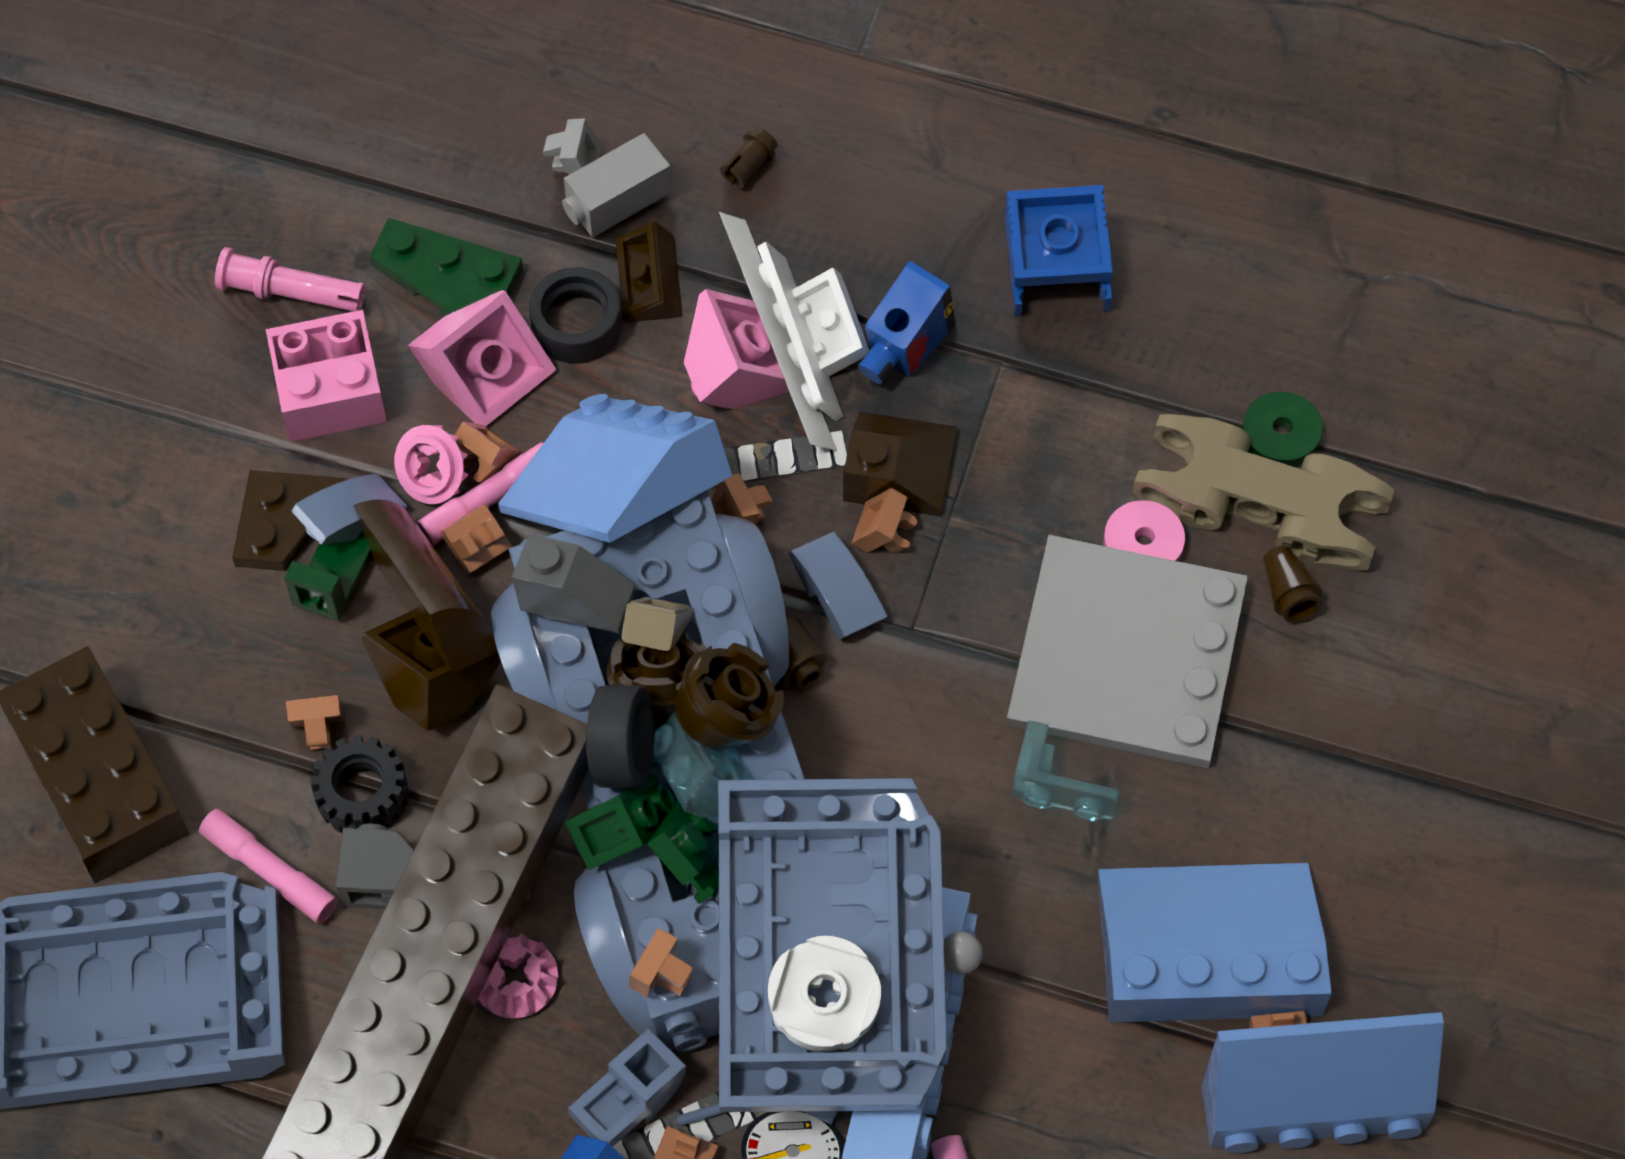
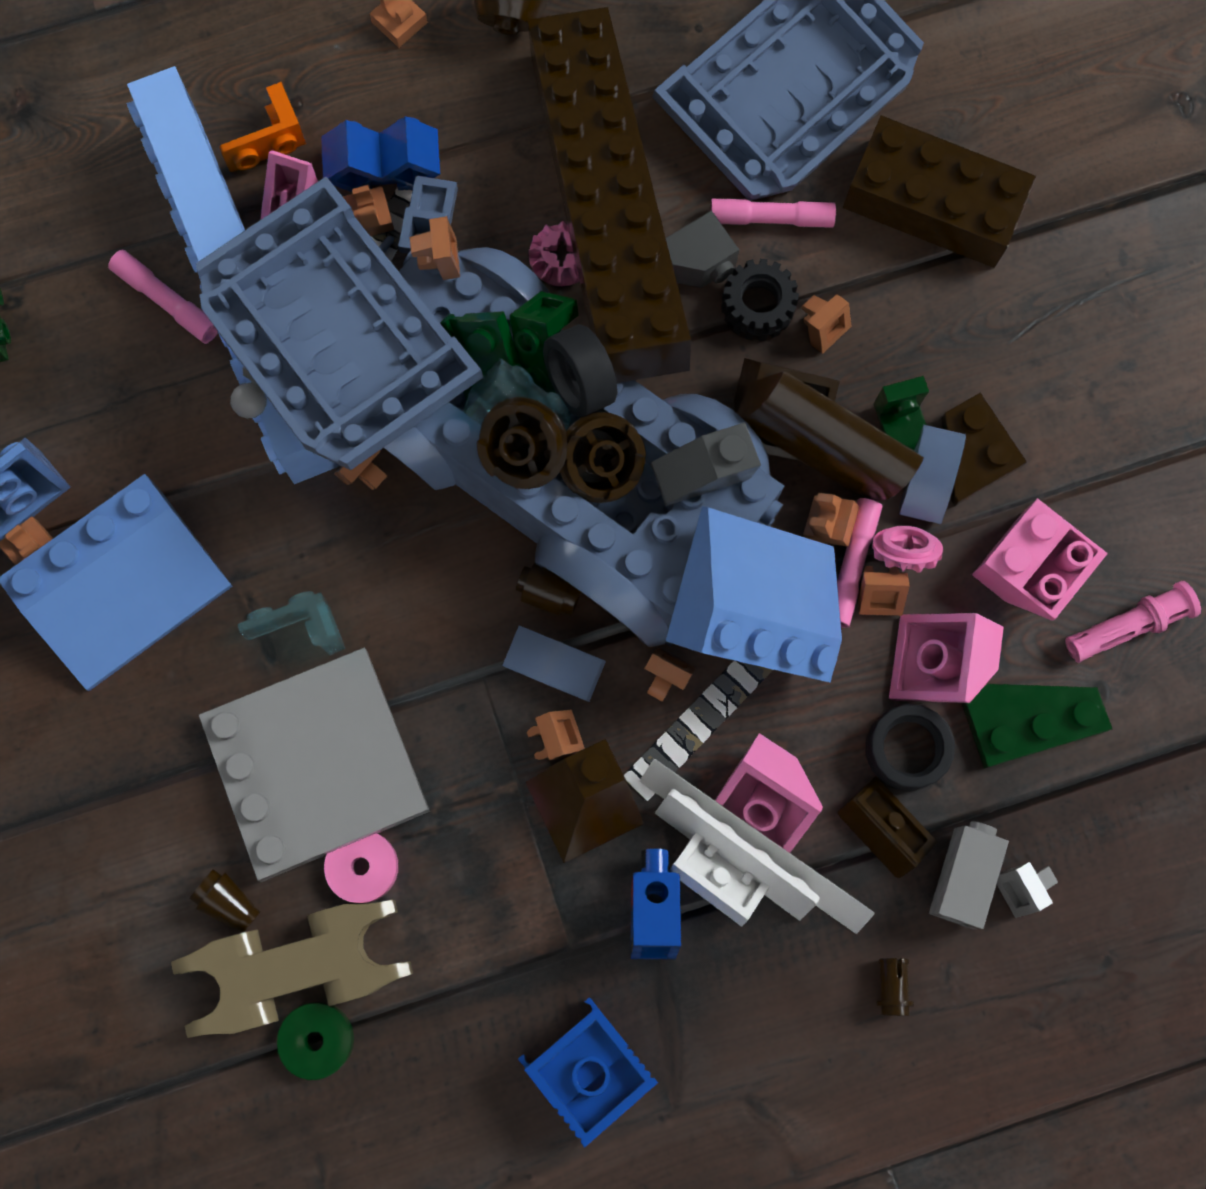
camera: 140 degrees right, 15 degrees up
(655, 622) = (629, 487): dark tan slope -> none
(838, 1023) = (315, 309): white plate -> none

